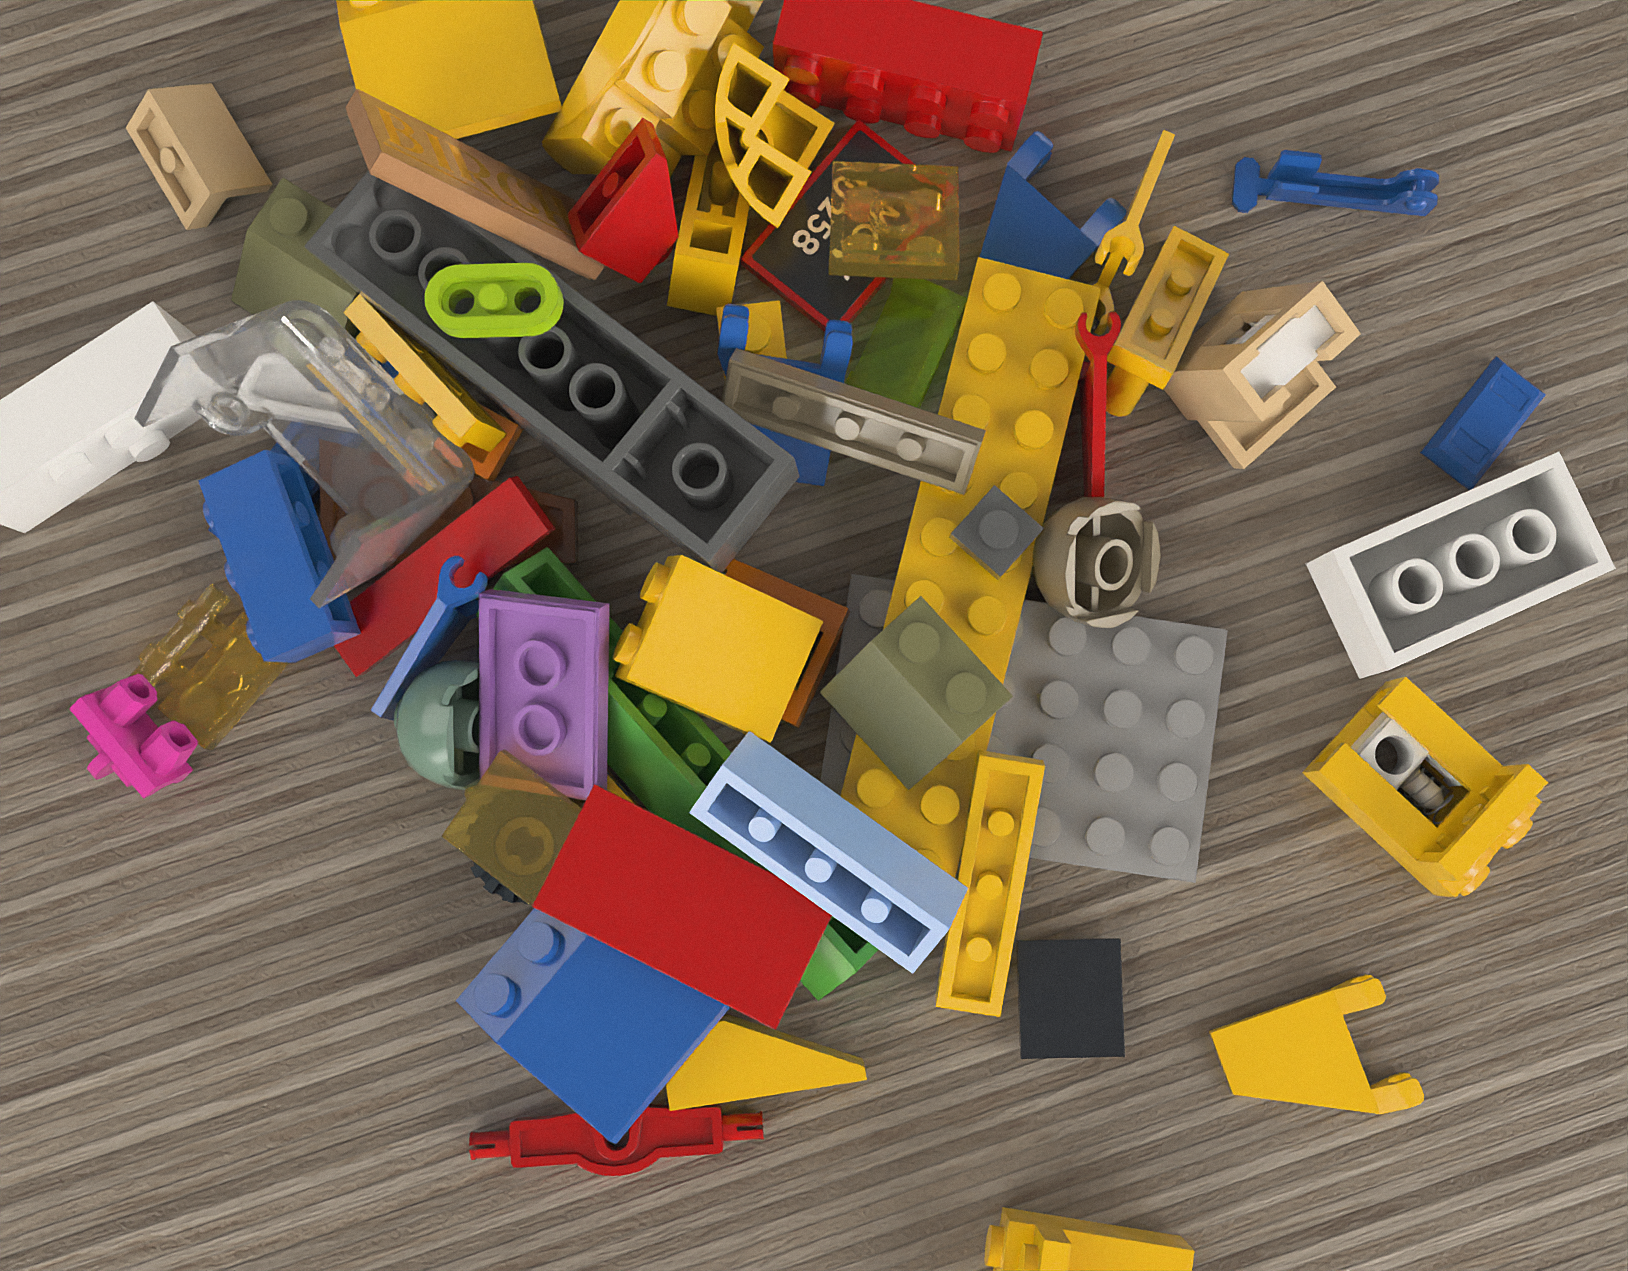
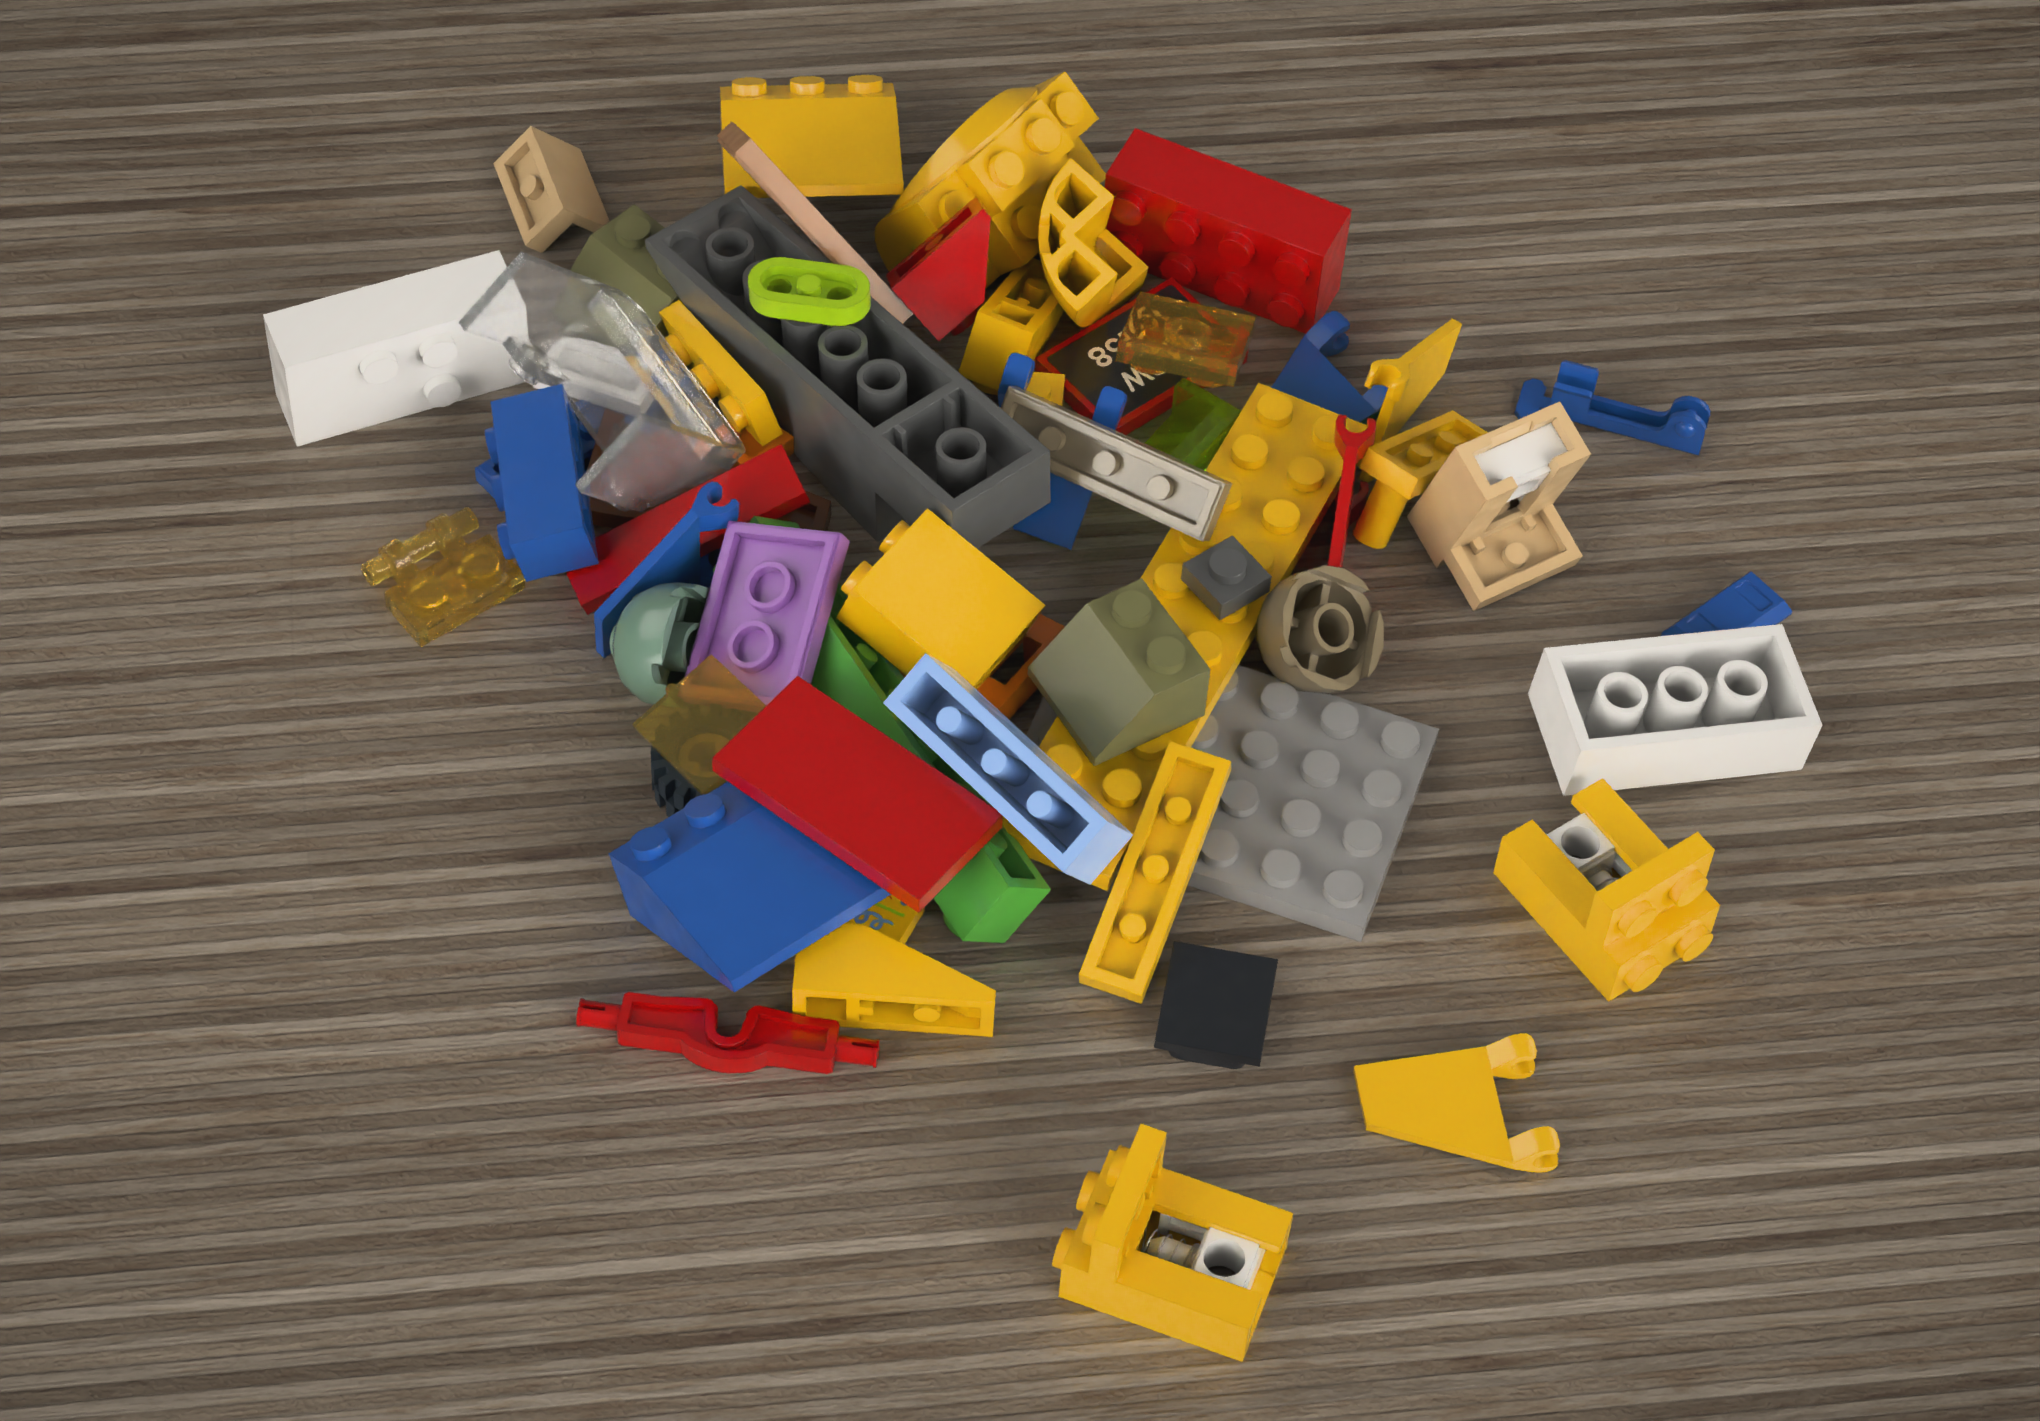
camera: 10 degrees right, 30 degrees down
(131, 740) = (351, 611): dark pink hips -> none

